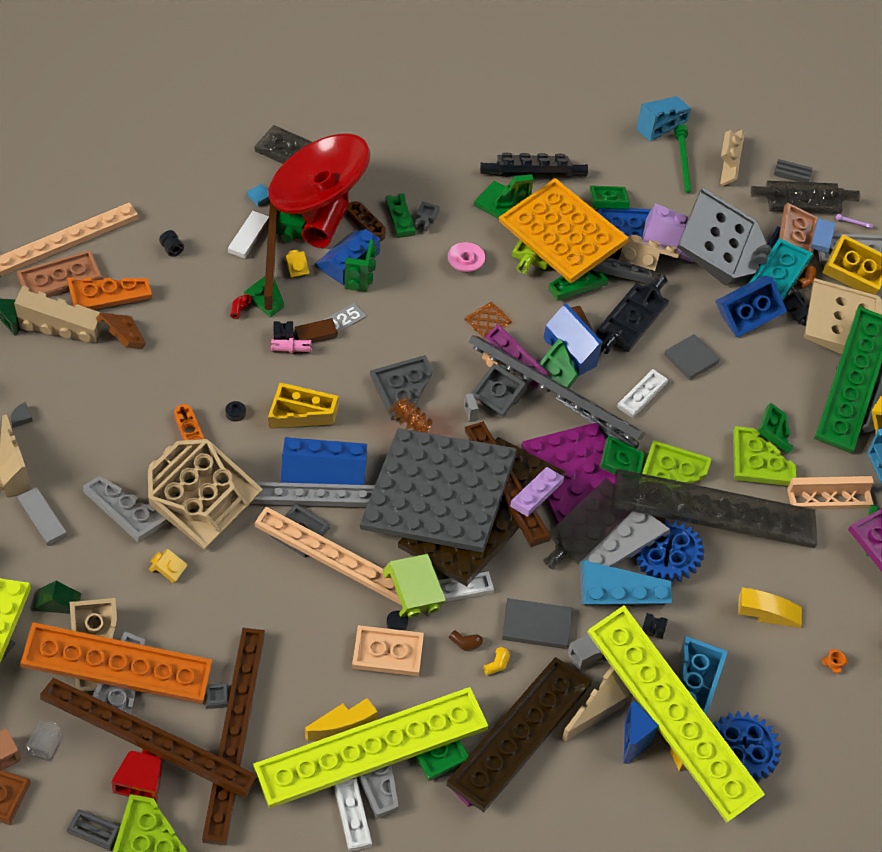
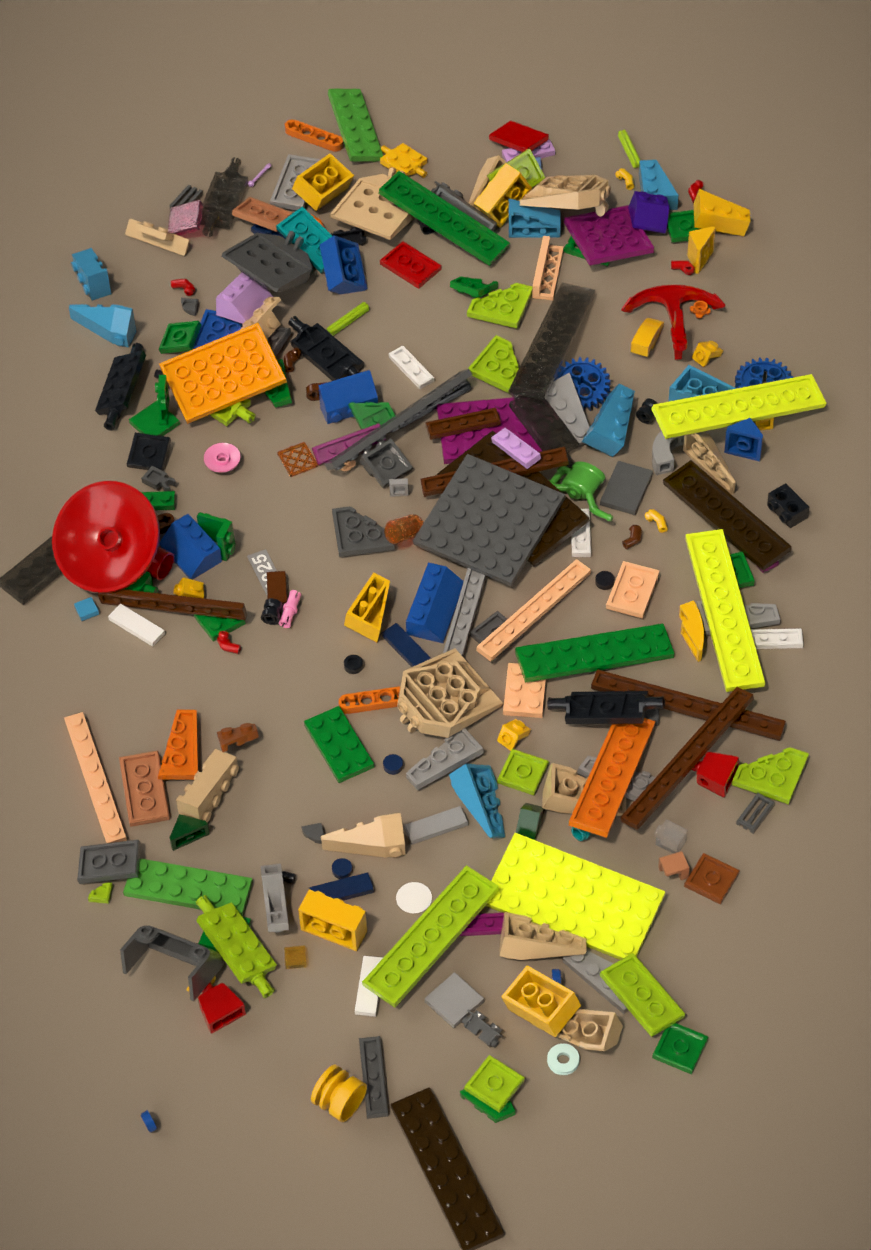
camera: 70 degrees left, 0 degrees up
(80, 546) = (477, 789): none -> dark azure wedge
(114, 465) = (393, 764): none -> dark blue tile
(121, 582) = (523, 772): none -> lime tile
(132, 416) = (338, 744): none -> green plate
(171, 243) = (133, 686): black wheel -> none
(208, 644) = (606, 706): none -> black plate
(229, 568) = (521, 697): none -> light nougat plate
(264, 453) = (405, 645): none -> dark blue tile
(289, 626) = (594, 652): none -> green plate
(415, 585) = (579, 553): lime panel -> none
(458, 202) = (148, 451): none -> black tile
(522, 573) = (581, 483): none -> bright green piece
(560, 803) = (787, 505): none -> black brick
(572, 447) = (463, 423): none -> reddish brown tile
(602, 143) = (111, 323): none -> dark azure wedge
(615, 289) = (290, 358): none -> reddish brown arm
(621, 456) = (483, 393): green tile -> none
(656, 198) = (190, 305): none -> dark grey tile
(680, 188) = (183, 283): none -> red arm
(681, 134) = (114, 266): green piece -> none
(687, 326) = (348, 318): none -> lime axle
(691, 356) = (381, 324): dark grey tile -> none
(762, 171) = (185, 218): none -> clear pink tile
(770, 676) = (705, 351): none -> yellow bracket
(786, 368) = (410, 264): none -> red tile
(823, 235) = (277, 197): medium blue tile -> none
(840, 623) = (672, 297): none -> red piece

